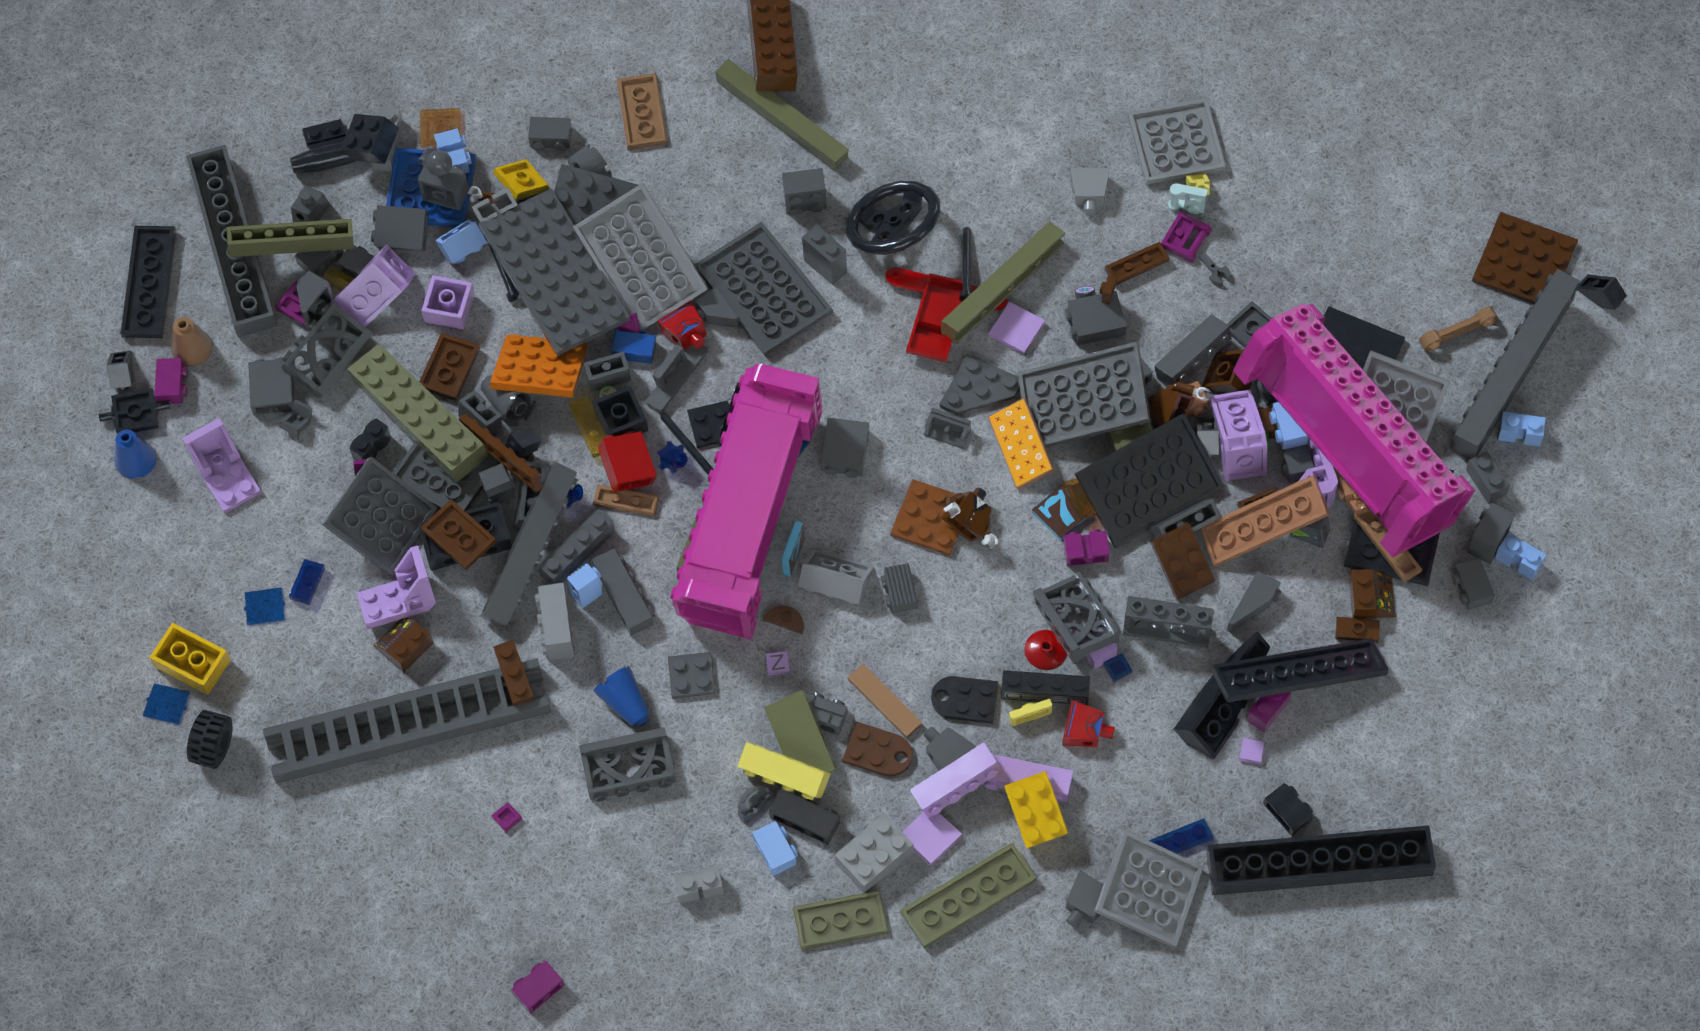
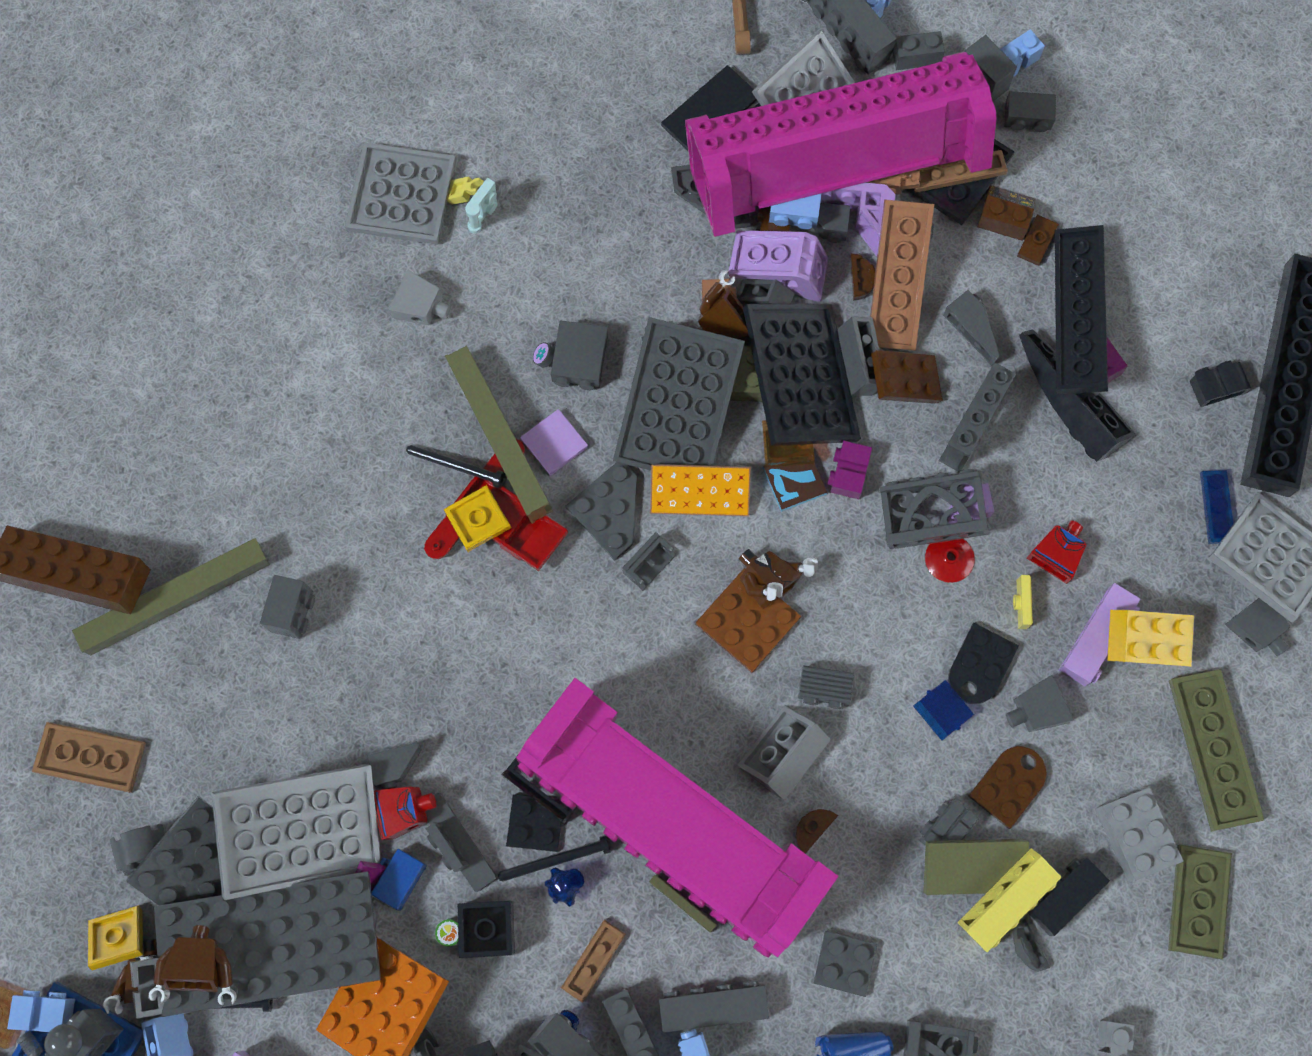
camera: 70 degrees left, 10 degrees up
(520, 225) = (193, 966): none -> reddish brown torso
(550, 133) = (67, 879): dark grey brick -> none
(588, 424) = (482, 970): clear yellow plate -> none
(607, 371) = (421, 924): dark grey brick -> none
(627, 461) = (549, 942): red brick -> none
(764, 288) = (386, 700): dark grey plate -> none
(774, 848) = (1096, 945): light blue brick -> none
(777, 663) = (865, 857): lavender tile -> none
(793, 548) = (738, 788): medium azure tile -> none
(824, 254) = (380, 614): dark grey brick -> none
(845, 447) = (629, 682): dark grey brick -> none
(884, 701) = (952, 754): medium nougat tile -> none
(894, 221) = (371, 521): black piece -> none
(917, 682) = (943, 710): none -> clear blue piece
(928, 293) = (477, 518): none -> yellow tile
(932, 836) = (1130, 764): lavender tile -> none
(956, 780) = (1089, 712): lavender brick -> none
(1044, 686) = (1001, 575): black brick -> none
(1107, 289) = (559, 325): reddish brown plate -> none
(1117, 667) = (1000, 491): clear blue tile -> none
(1137, 263) = (530, 289): reddish brown plate -> none
(1180, 233) = (514, 233): magenta plate -> none
(1193, 351) = (663, 272): dark grey brick -> none
(1215, 270) = (571, 215): dark grey bar -> none
(1220, 375) = (698, 248): reddish brown slope -> none
(1247, 323) = (654, 205): dark grey tile -> none
(1251, 751) = (1139, 395): lavender tile -> none

